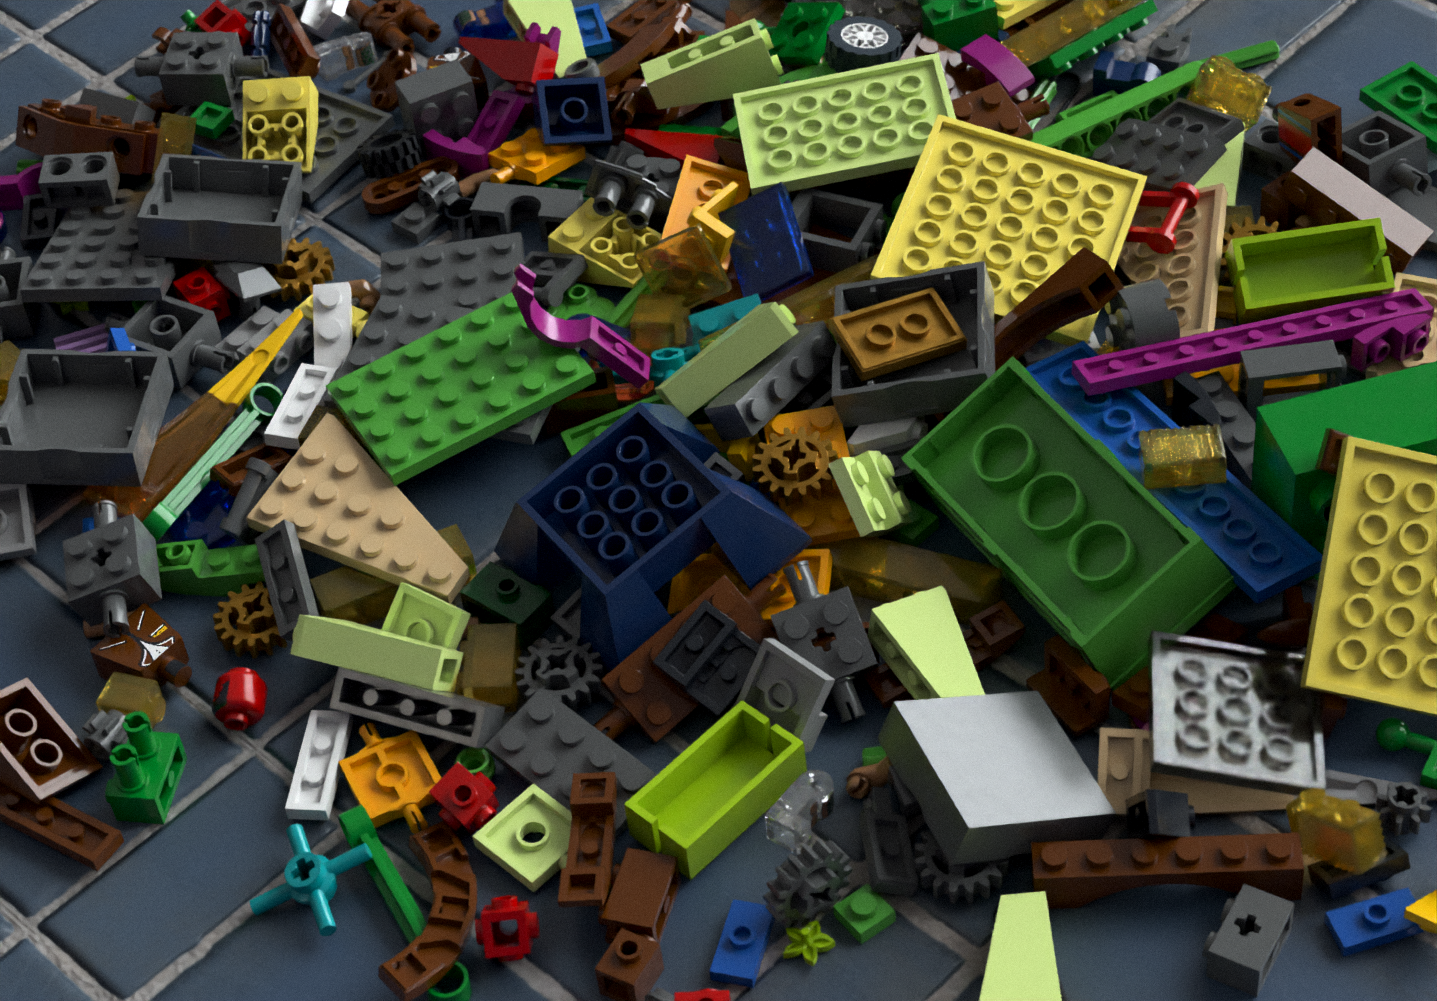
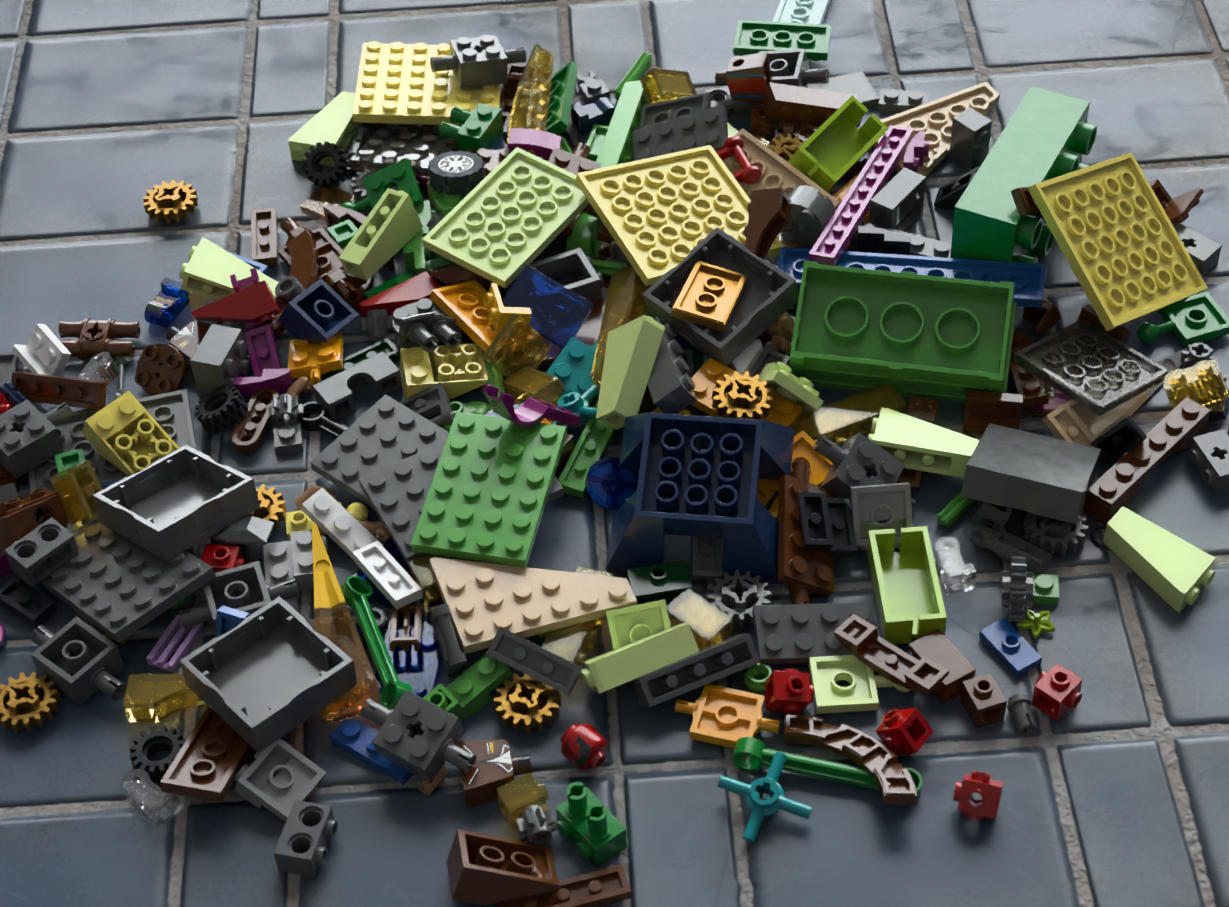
camera: 50 degrees left, 0 degrees up
(318, 766) = (677, 743): white plate -> none
(864, 778) = (958, 525): medium nougat arm -> none
(1182, 456) = (927, 257): clear yellow brick -> none

